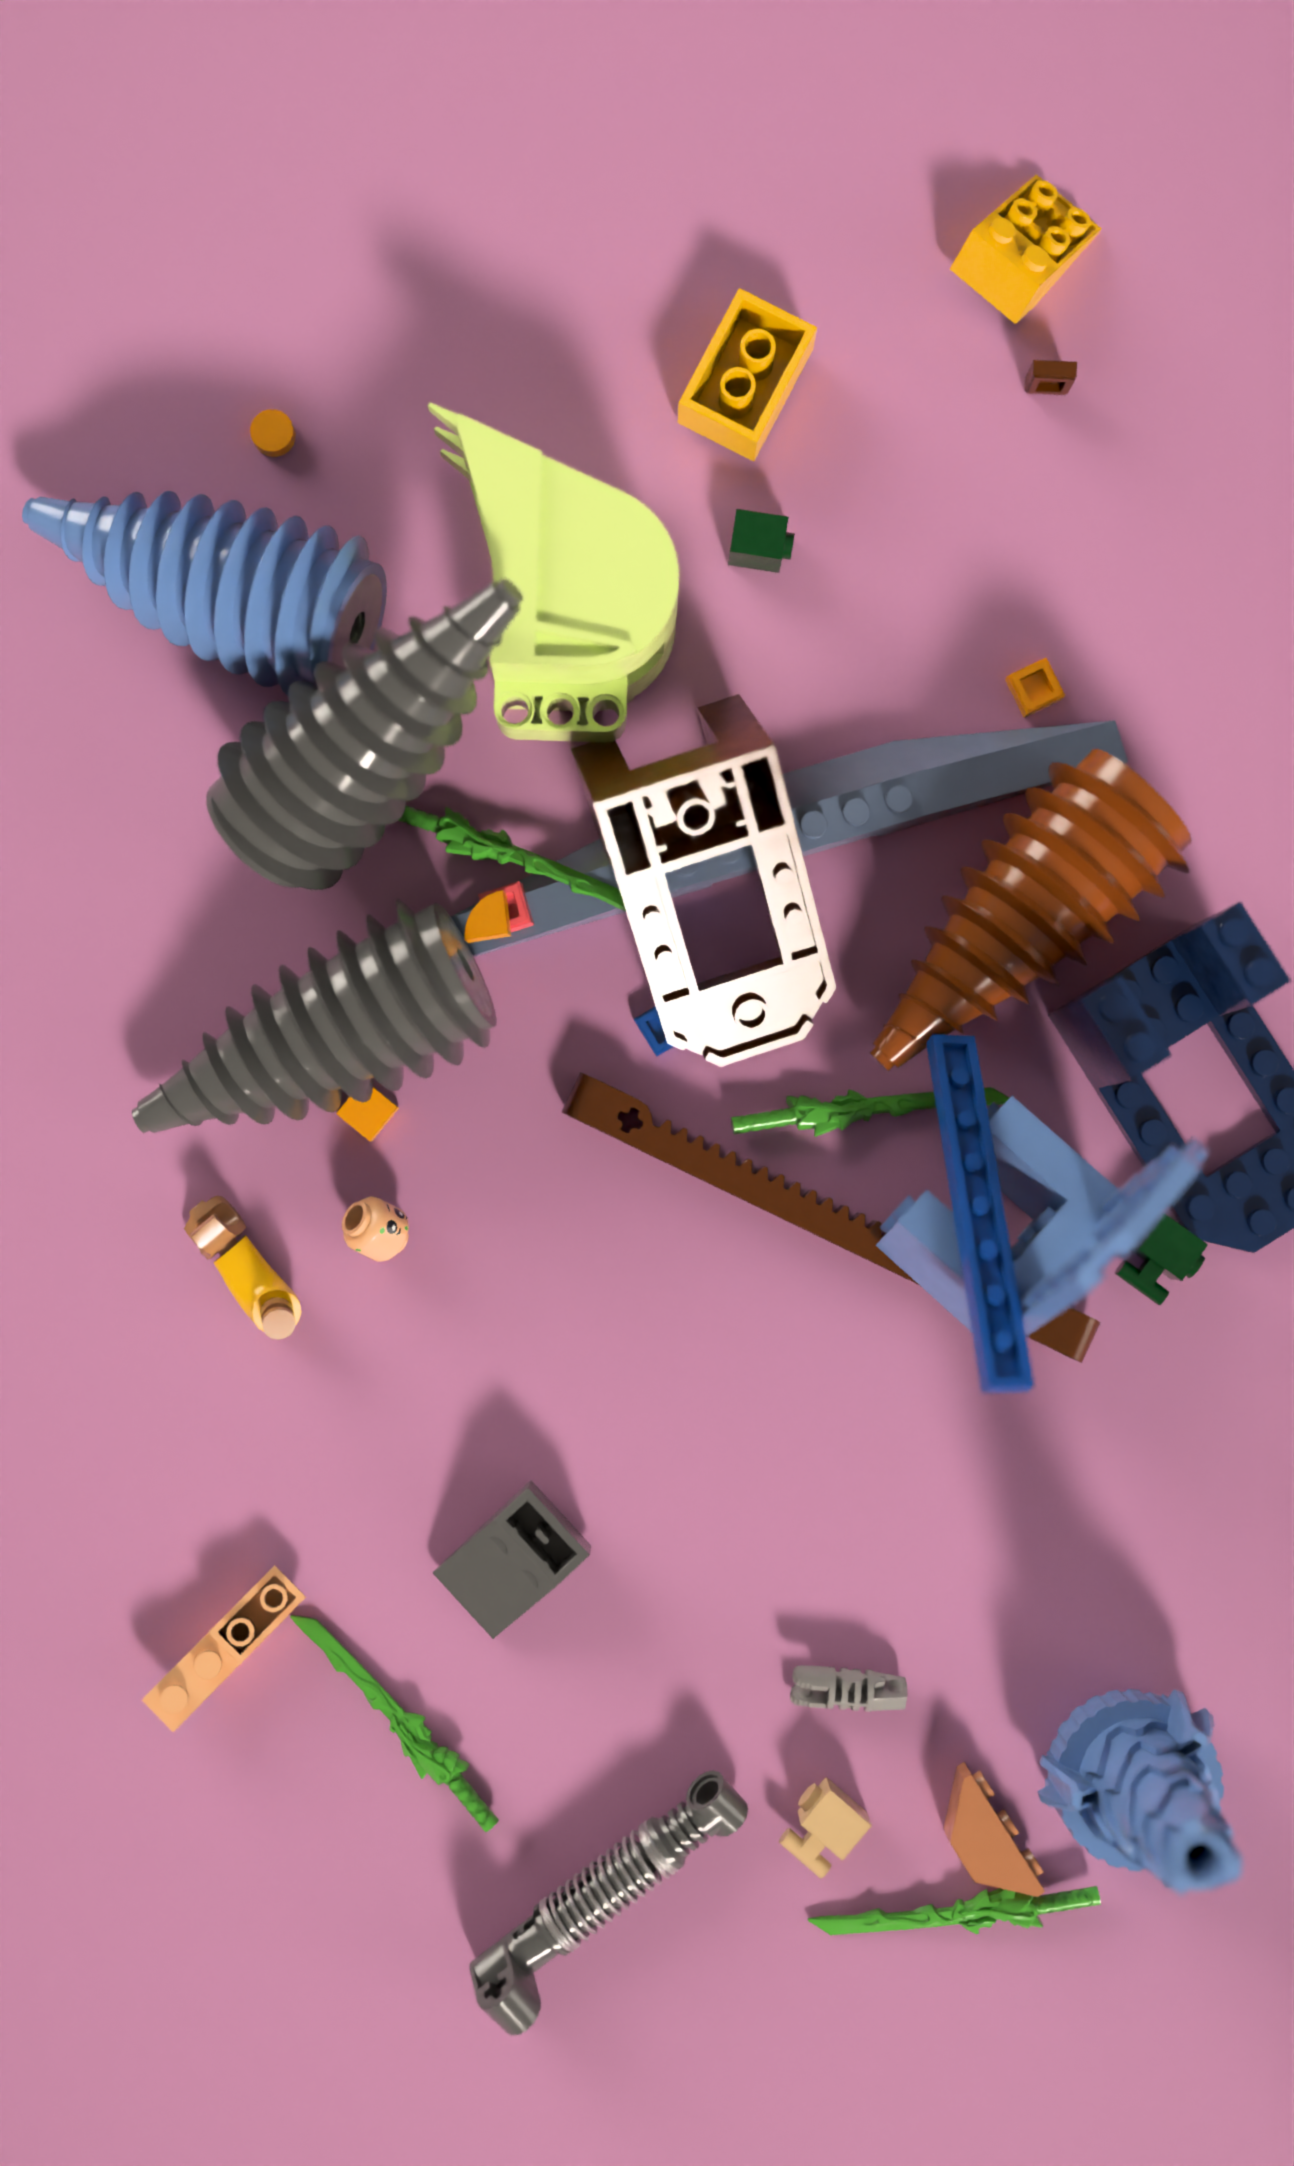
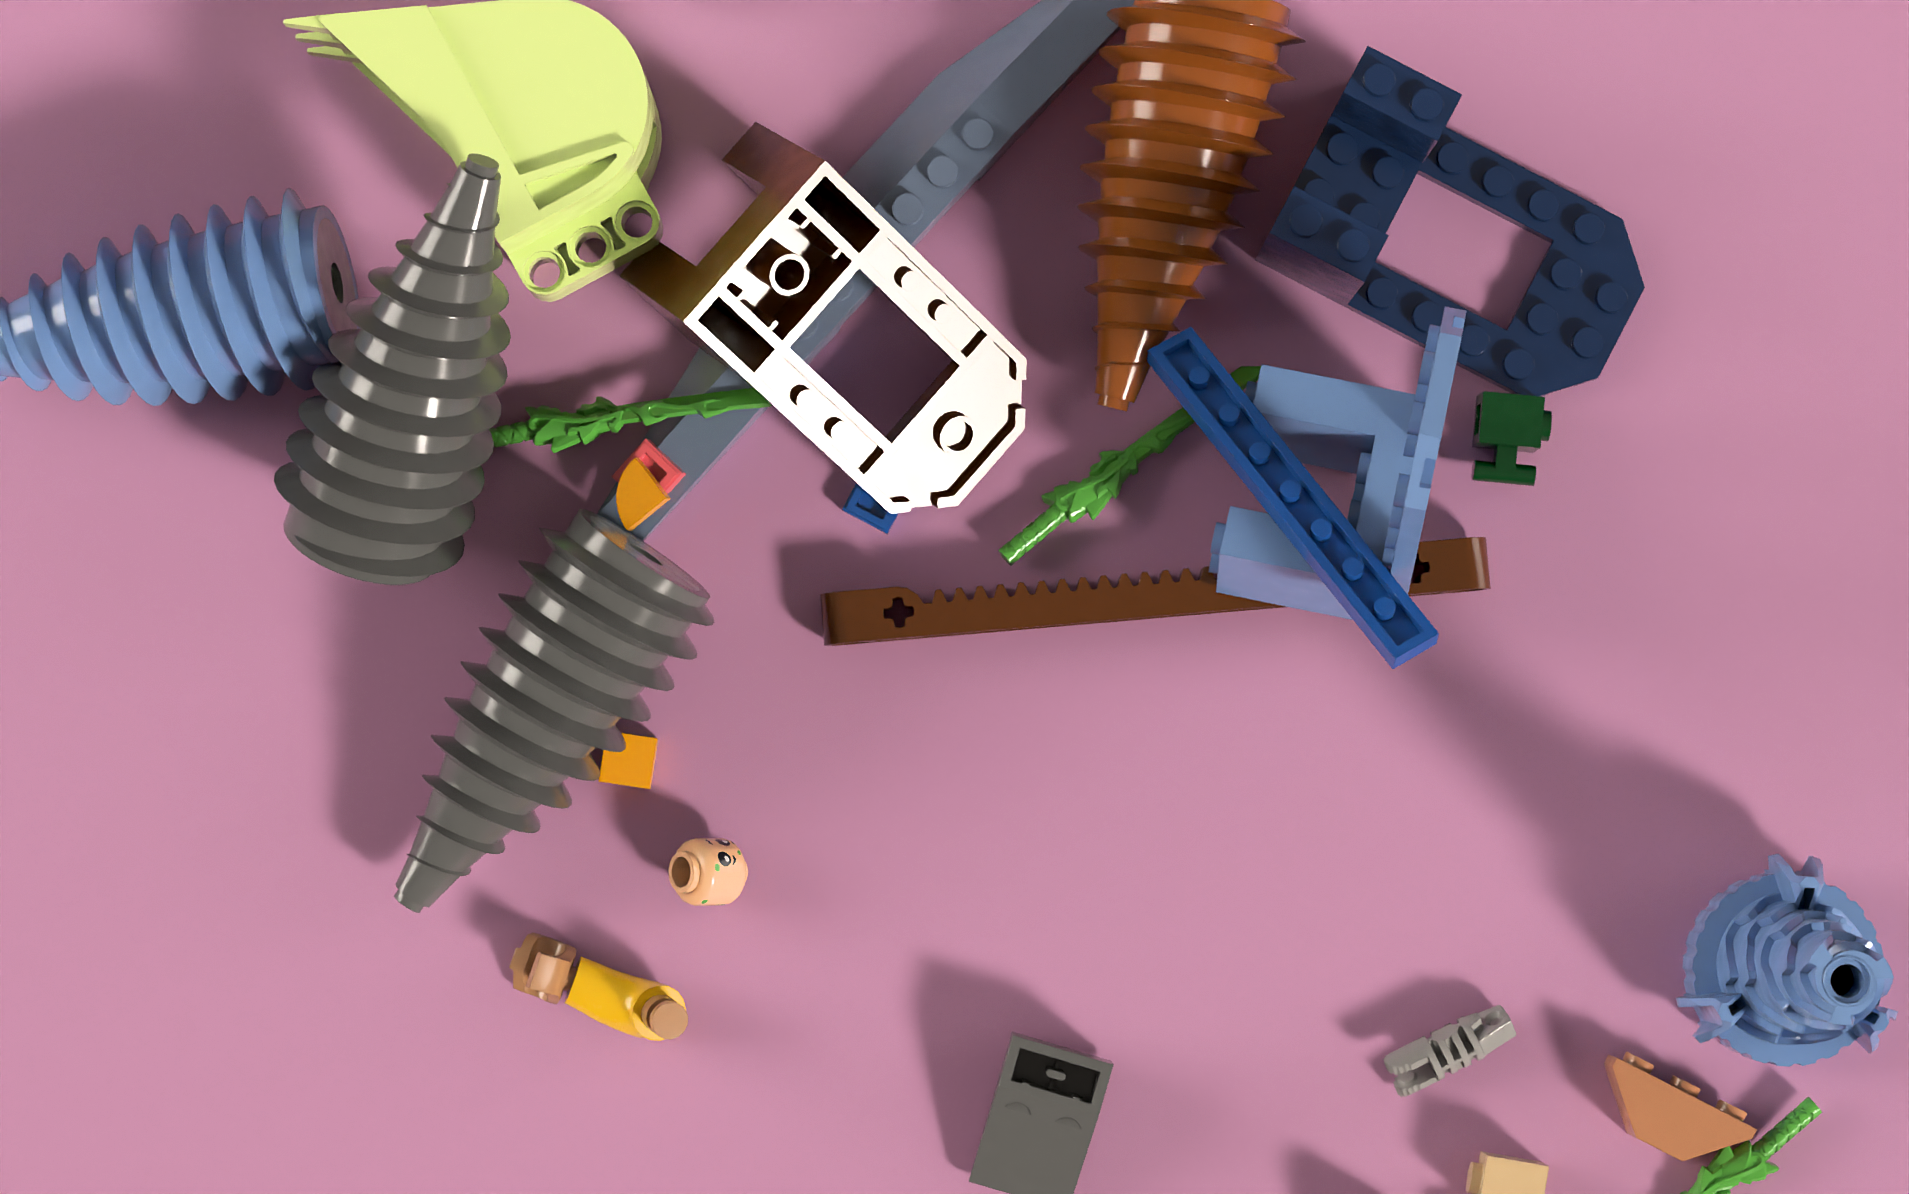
camera: 30 degrees left, 0 degrees up
(272, 433) = (121, 130): light orange tile -> none

